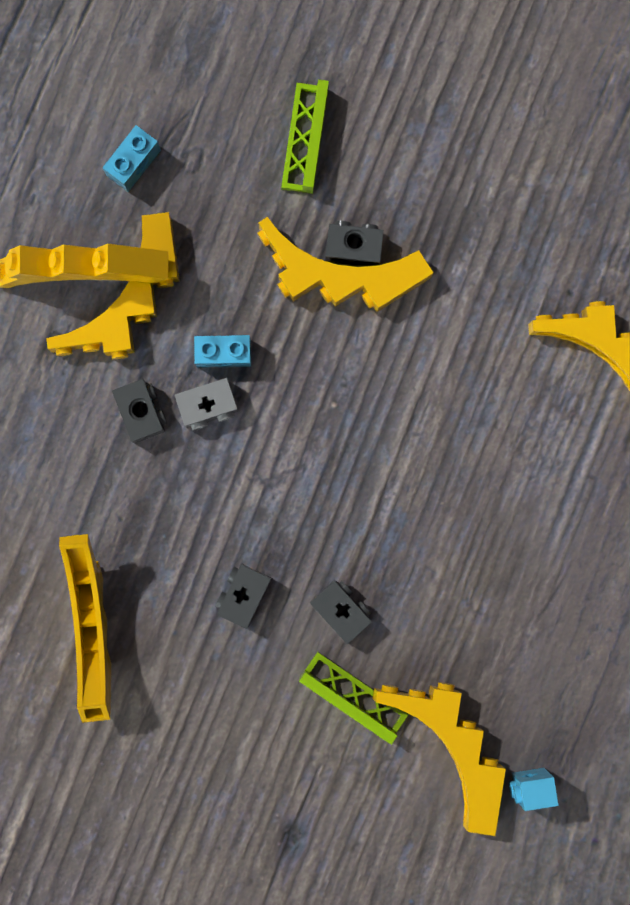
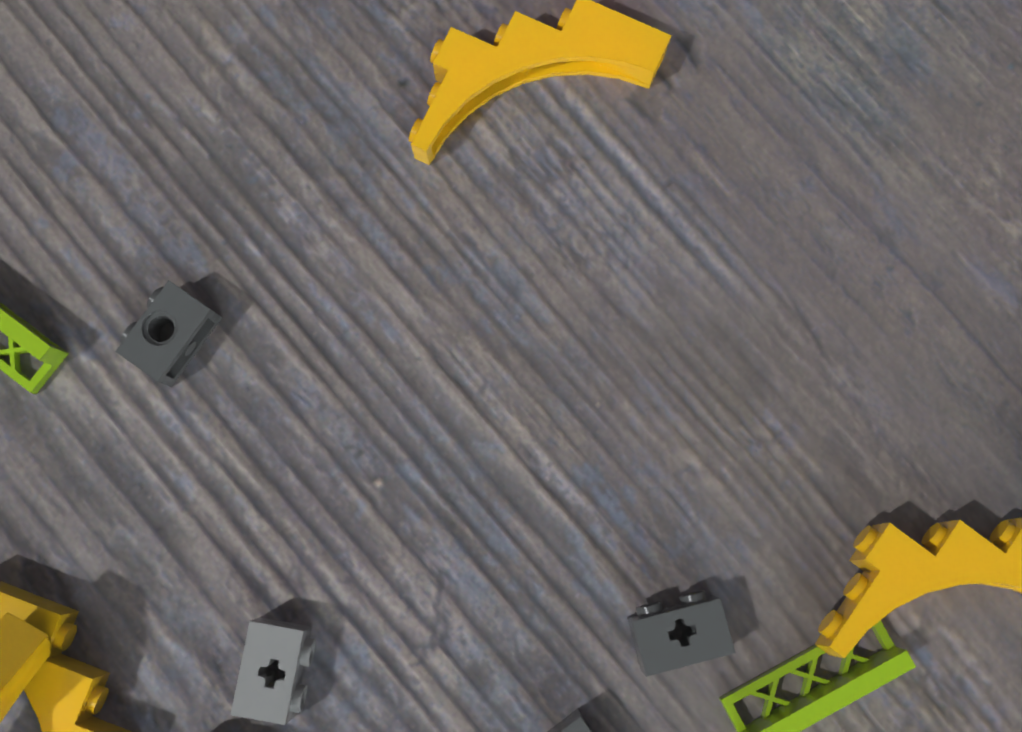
camera: 55 degrees left, 5 degrees down
(222, 351) = (209, 605): medium azure brick -> none
(304, 272) = (168, 423): yellow arch -> none

